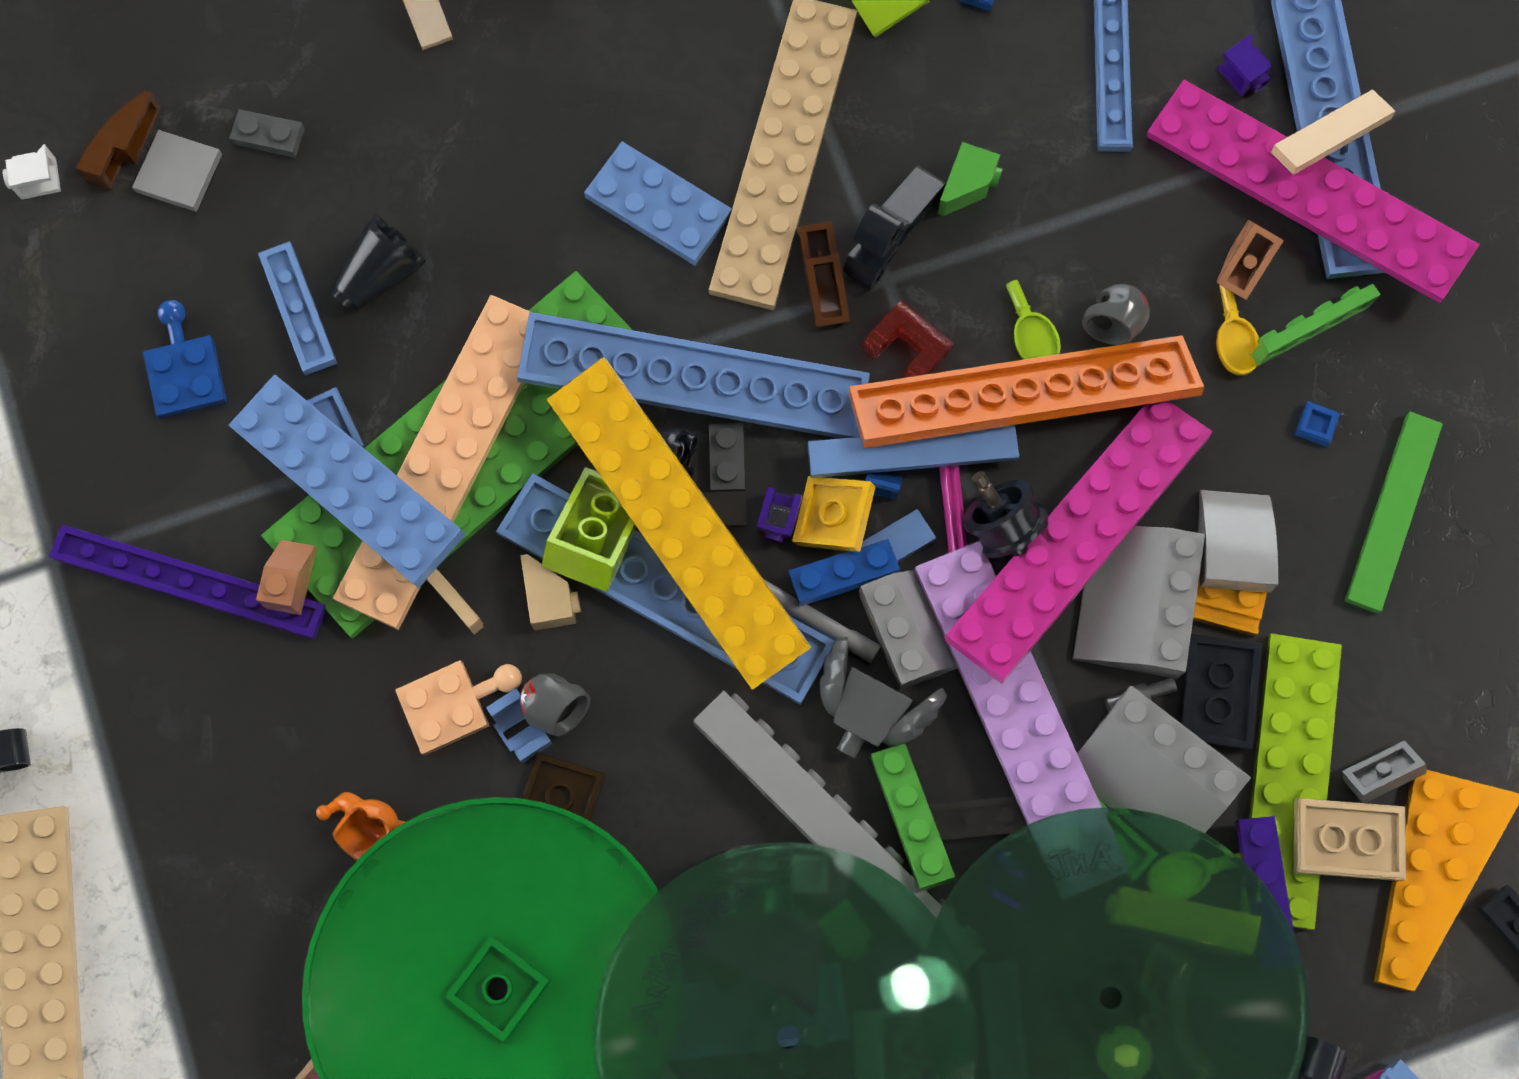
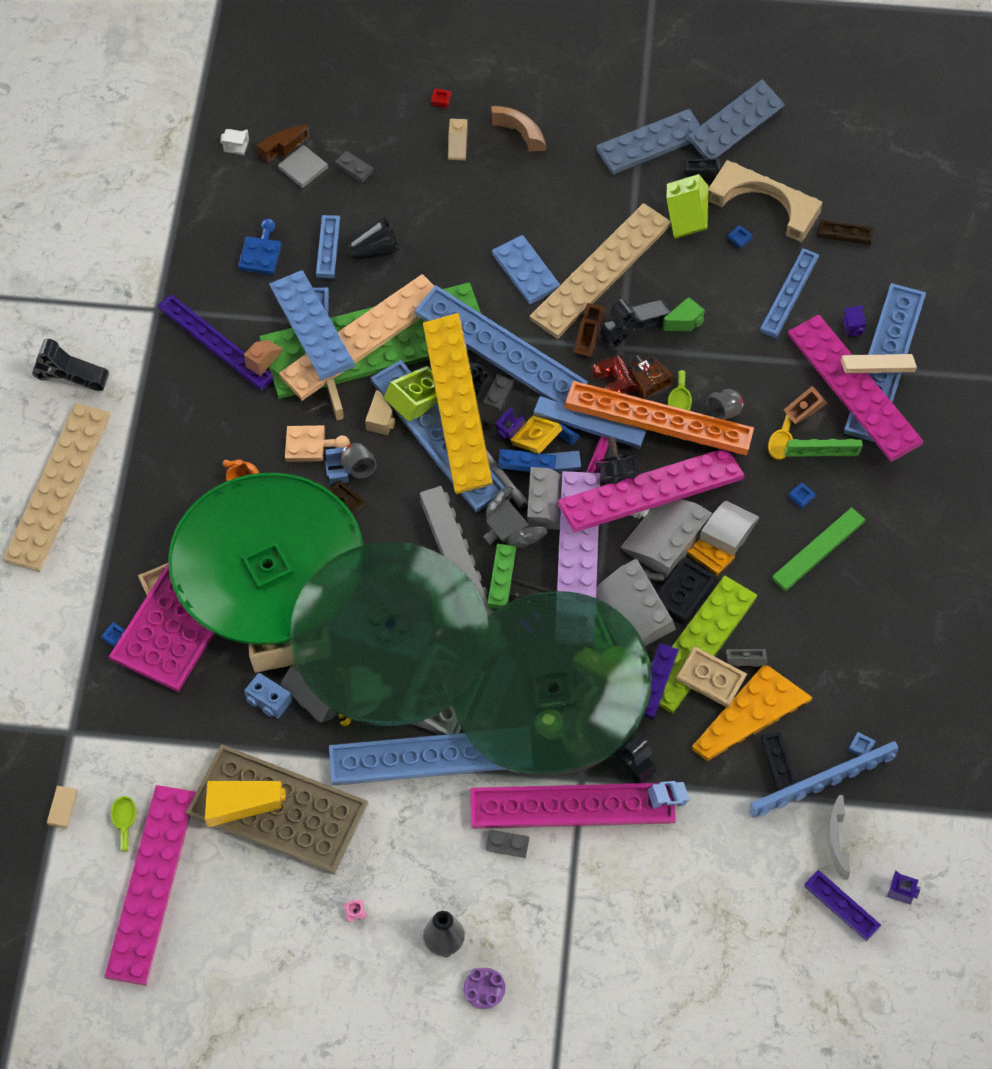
camera: 25 degrees right, 15 degrees down
(965, 315) = (650, 376): none -> reddish brown torso

